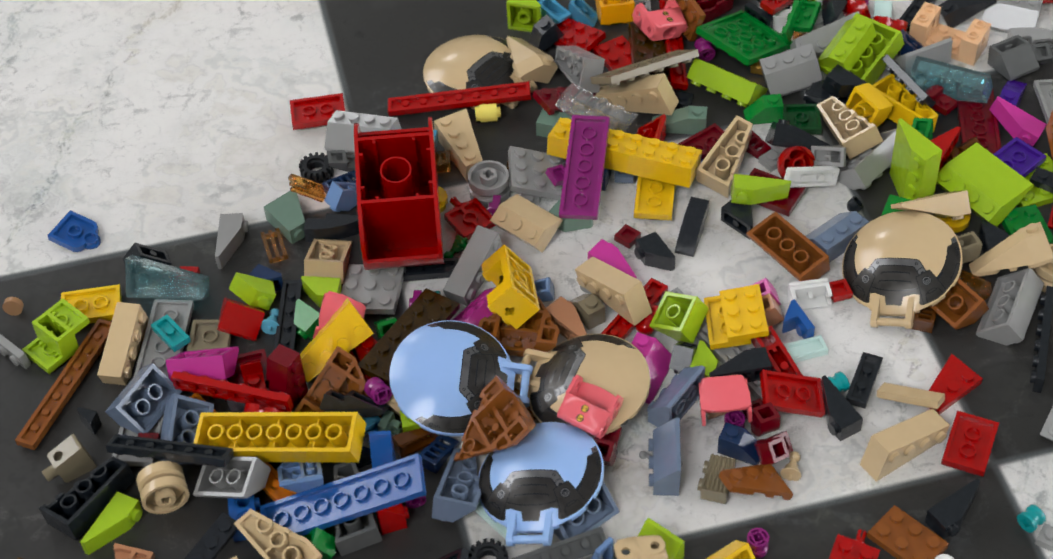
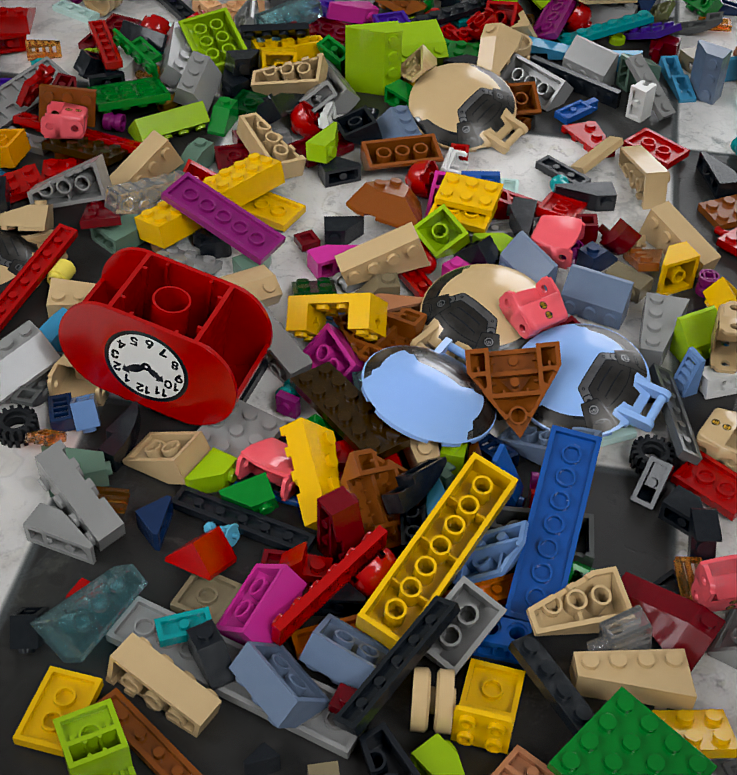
camera: 70 degrees left, 5 degrees down
(154, 350) = (210, 654): none -> black slope
(174, 527) = (488, 706): none -> yellow bracket
(252, 227) = (78, 496): none -> light grey wedge
(253, 290) = (175, 527): lime slope -> none
(378, 390) = (413, 454): magenta wheel -> none
(556, 174) = (203, 249): magenta plate -> none
(558, 265) = (320, 286): none -> dark green plate
(643, 67) = (124, 145): dark tan plate -> none
(675, 513) = (658, 325): none -> light grey wedge
(692, 226) = (325, 196): black slope -> none
(705, 268) = (388, 201): none -> dark orange wedge
(747, 505) = (678, 269): none -> yellow slope
(767, 269) = (421, 177): none -> red cylinder
(804, 500) = (668, 227): none -> tan wedge
(814, 204) = (358, 126): none -> black slope
(848, 44) = (207, 35): lime slope -> none
(990, 358) = (576, 110): none -> blue hinge
(1037, 403) = (640, 101): none -> white hinge

